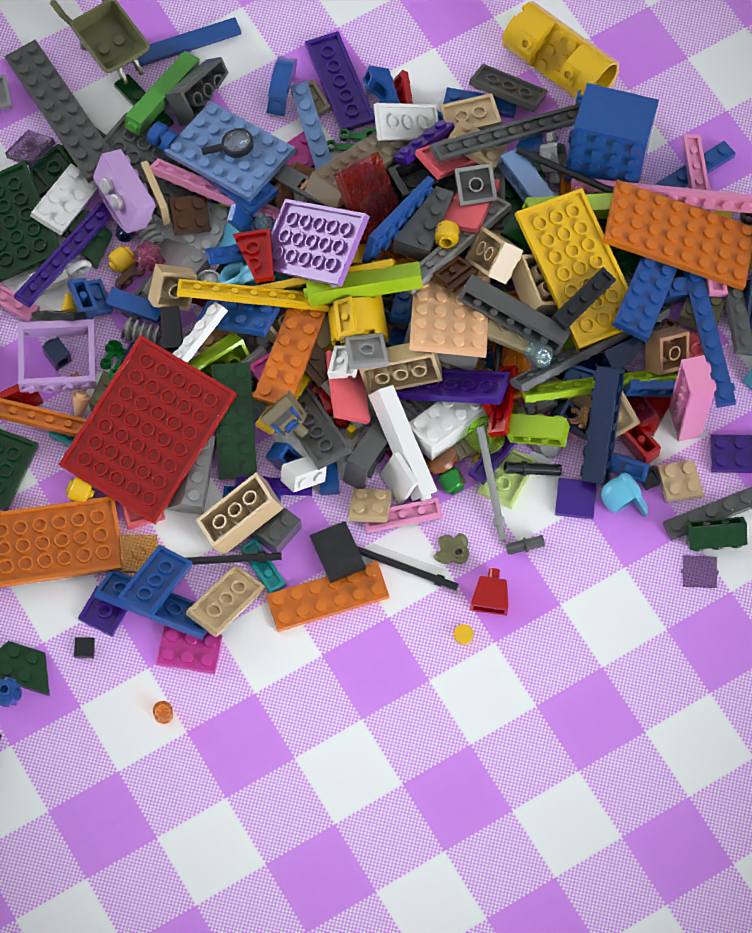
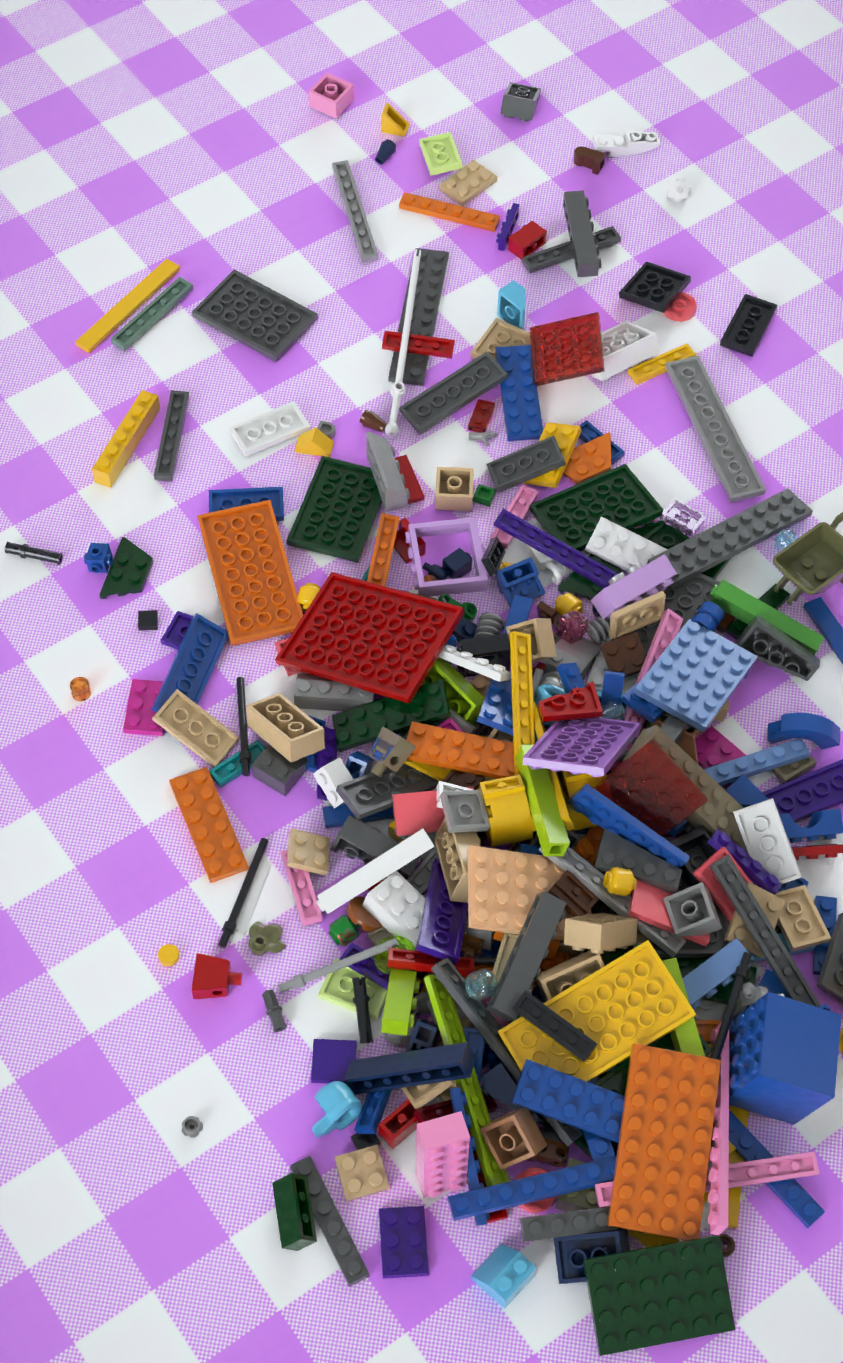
camera: 85 degrees right, 10 degrees down
(63, 371) = (435, 570): none -> dark blue cylinder
(70, 66) = (784, 539): none -> clear light blue head
(80, 402) = (403, 582): light nougat cone -> none
(135, 551) = (245, 653): clear yellow tile -> none
(154, 581) = (209, 661): blue plate -> none
(234, 143) = (699, 672): piece -> none
(337, 552) = (254, 826): black tile -> none
(346, 135) = (745, 792): none -> blue slope
(399, 478) = (339, 875): white tile -> none
(582, 416) = (416, 1043): clear orange tile -> none
(629, 613) = (189, 1121): none -> light grey plate
(699, 571) = (252, 1201): clear purple piece -> none

